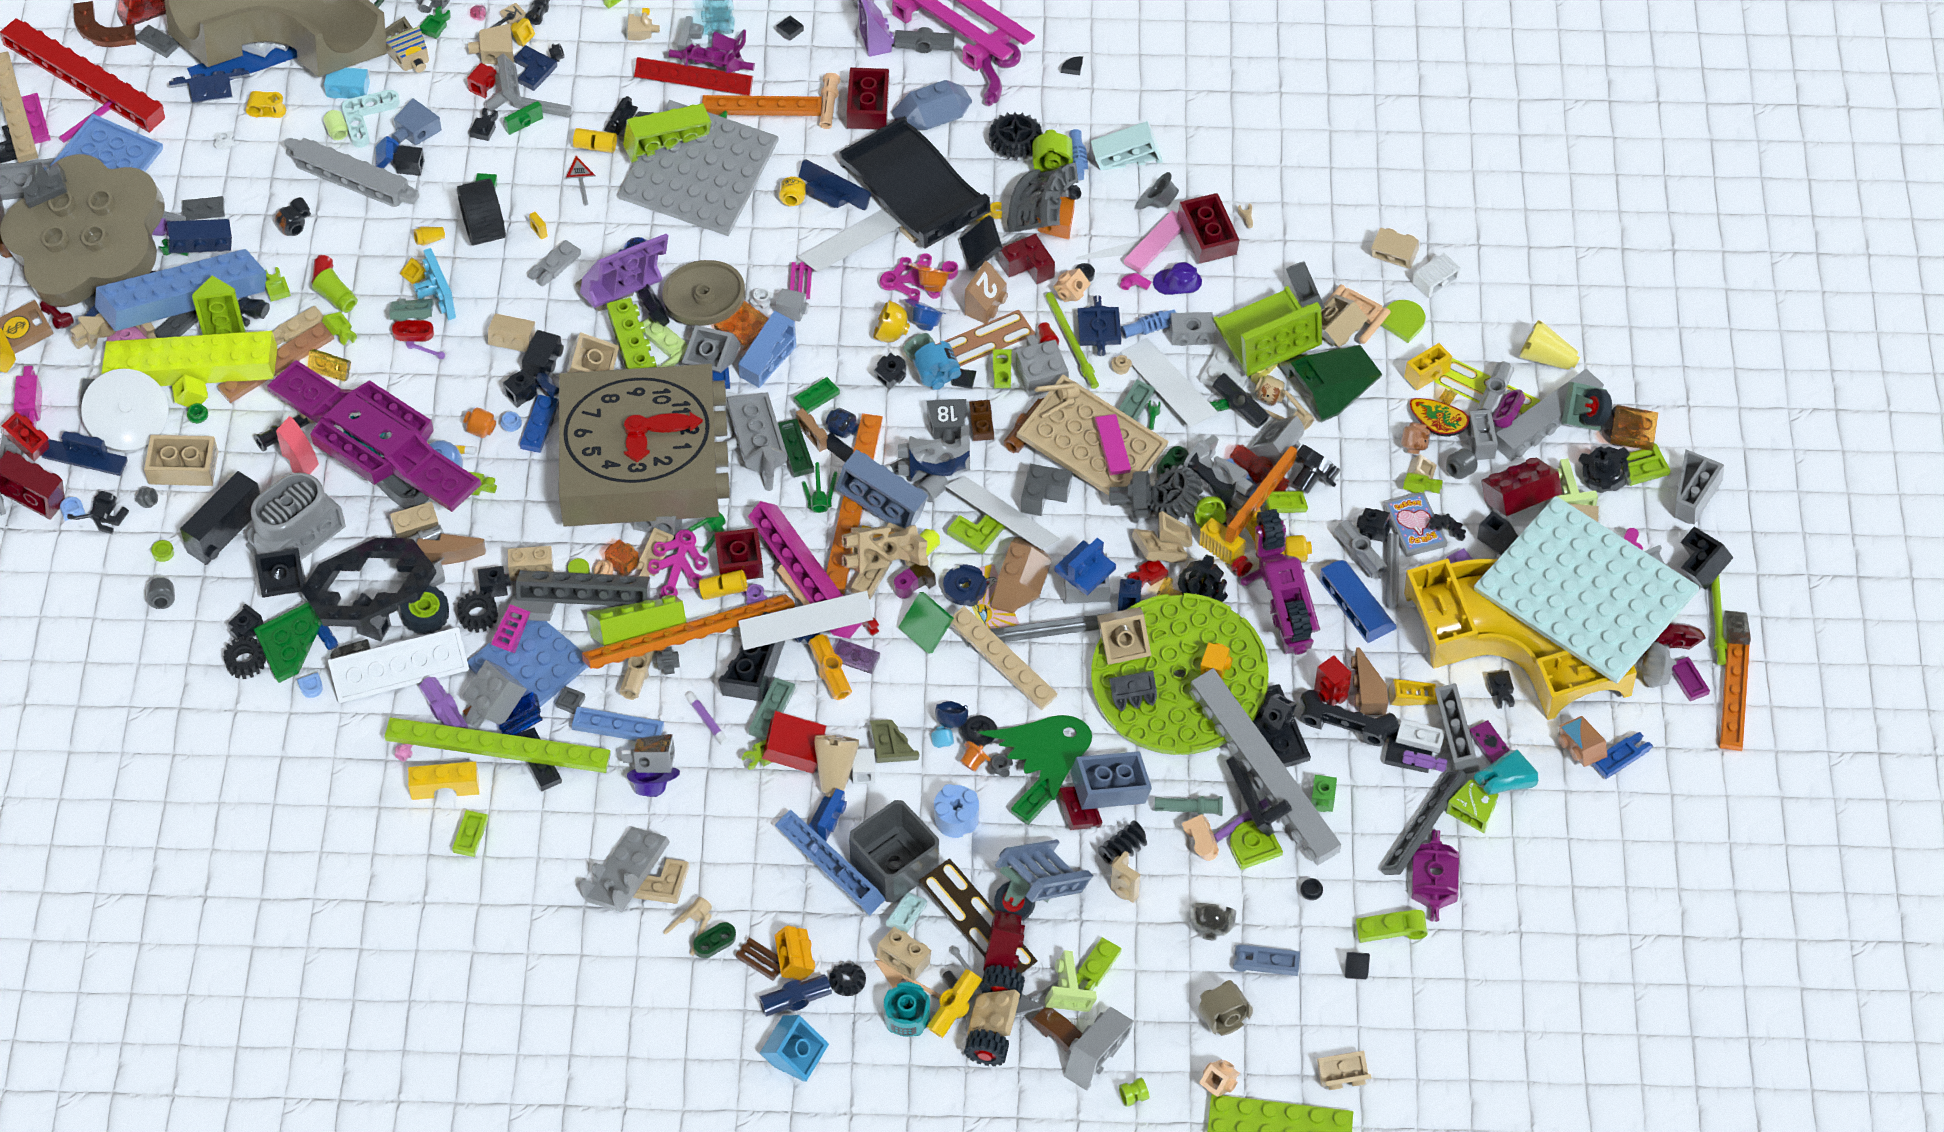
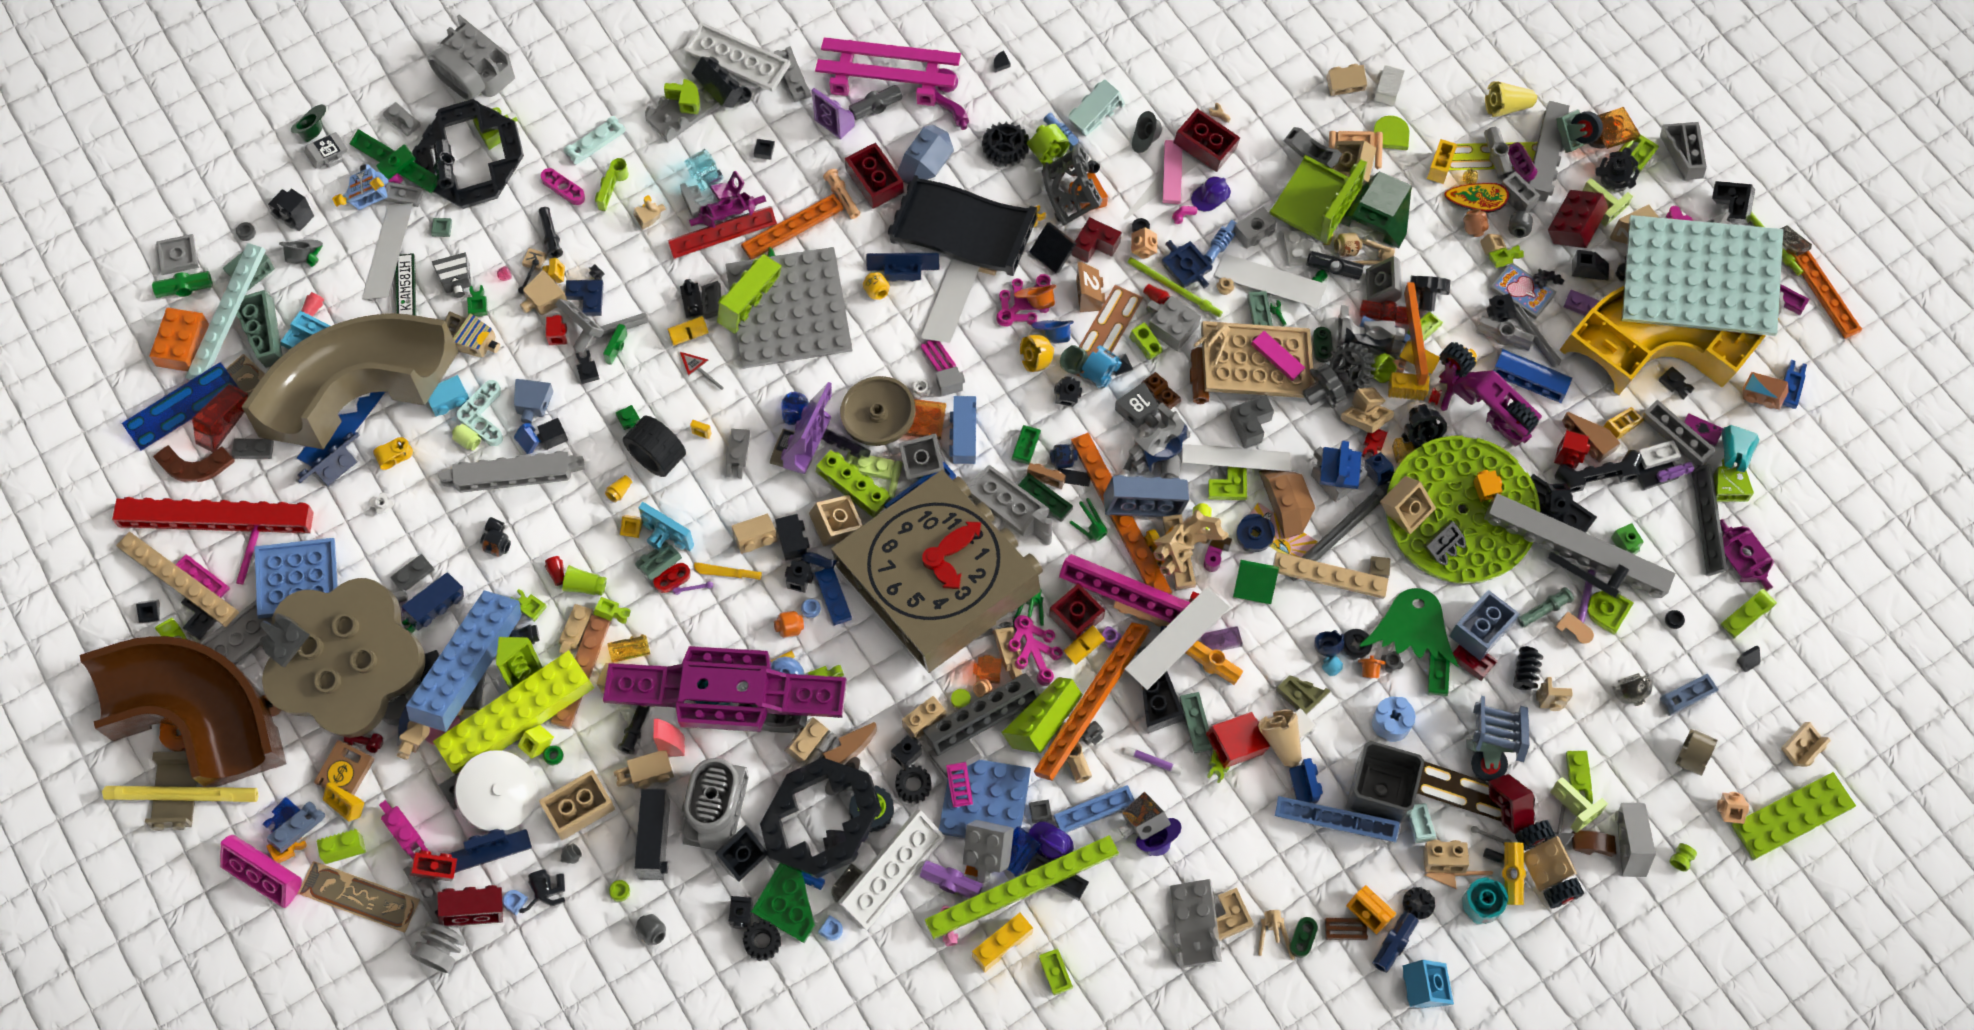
camera: 35 degrees left, 10 degrees up
(261, 466) = (646, 770): none -> tan brick
(462, 351) = (725, 571): none -> yellow piece
(557, 725) = (1053, 840): none -> dark purple piece
(1060, 681) = (1380, 566): none -> dark tan plate

